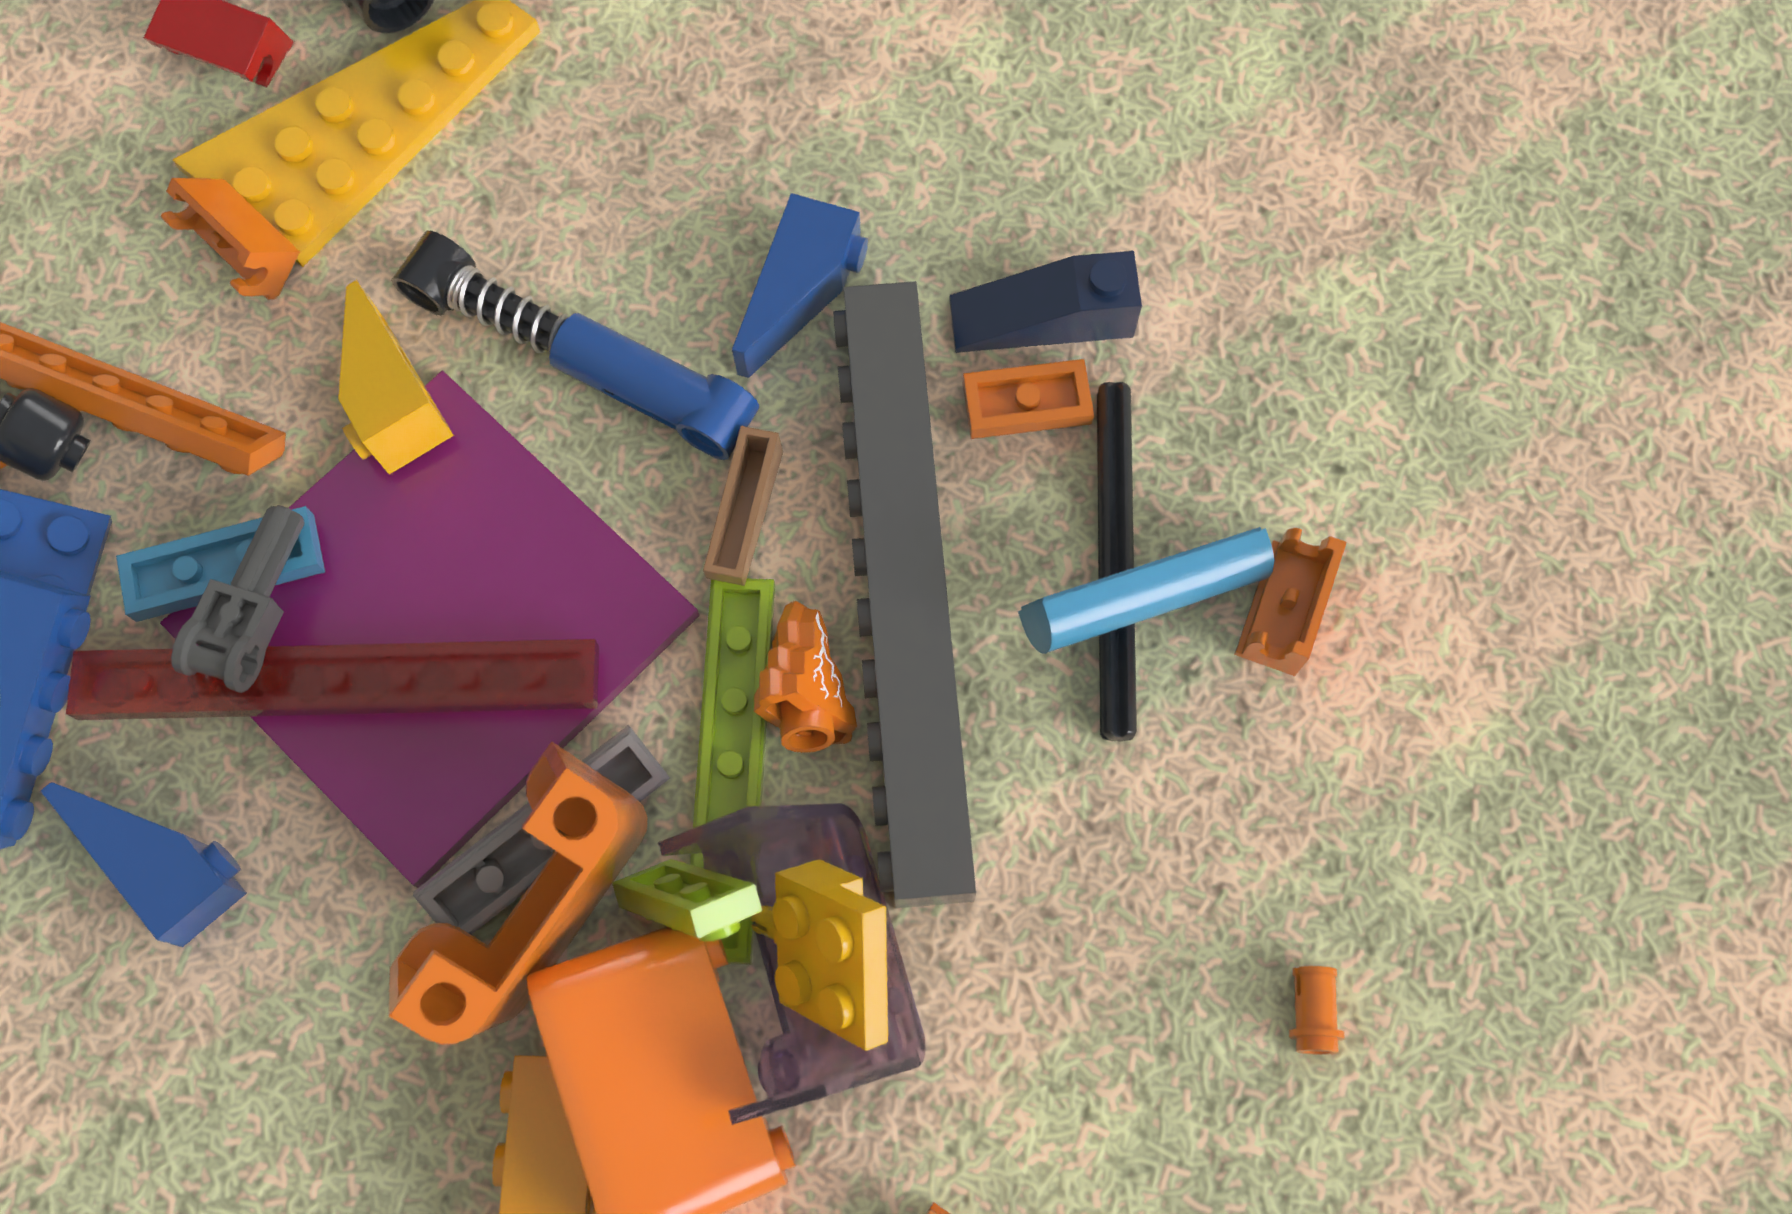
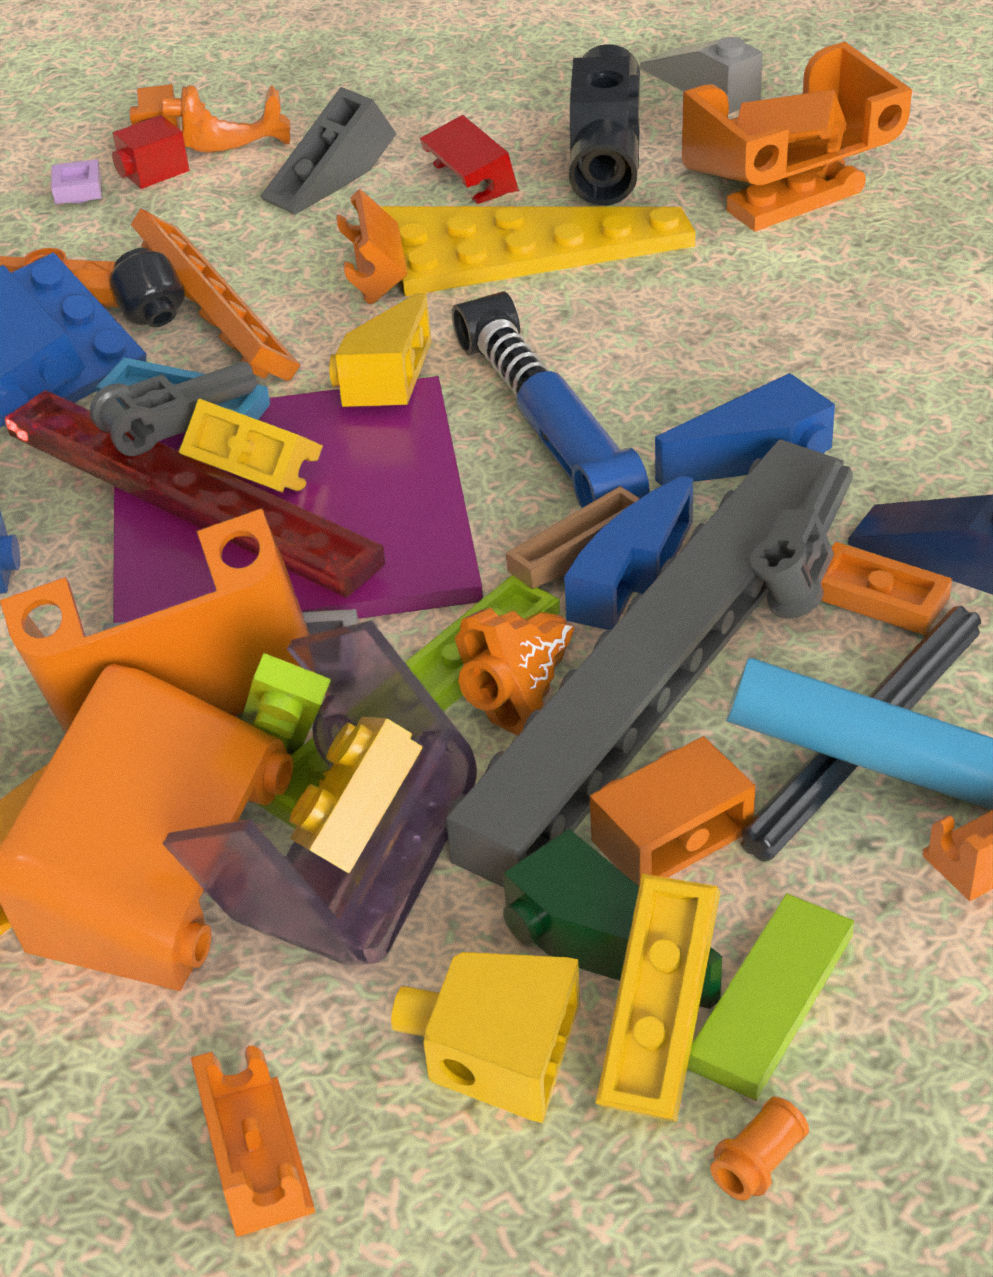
camera: 40 degrees right, 30 degrees down
(54, 112) = (332, 153): none -> dark grey slope
(361, 599) = (247, 447): none -> yellow hinge
(802, 494) = (628, 554): none -> blue slope
(950, 399) = (797, 547): none -> dark grey connector
(1042, 754) = (672, 811): none -> orange brick
(1059, 896) = (581, 909): none -> dark green slope
(1069, 1050) = (496, 1027): none -> yellow torso
(1176, 947) = (658, 997): none -> yellow tile
(1226, 867) = (770, 996): none -> lime tile

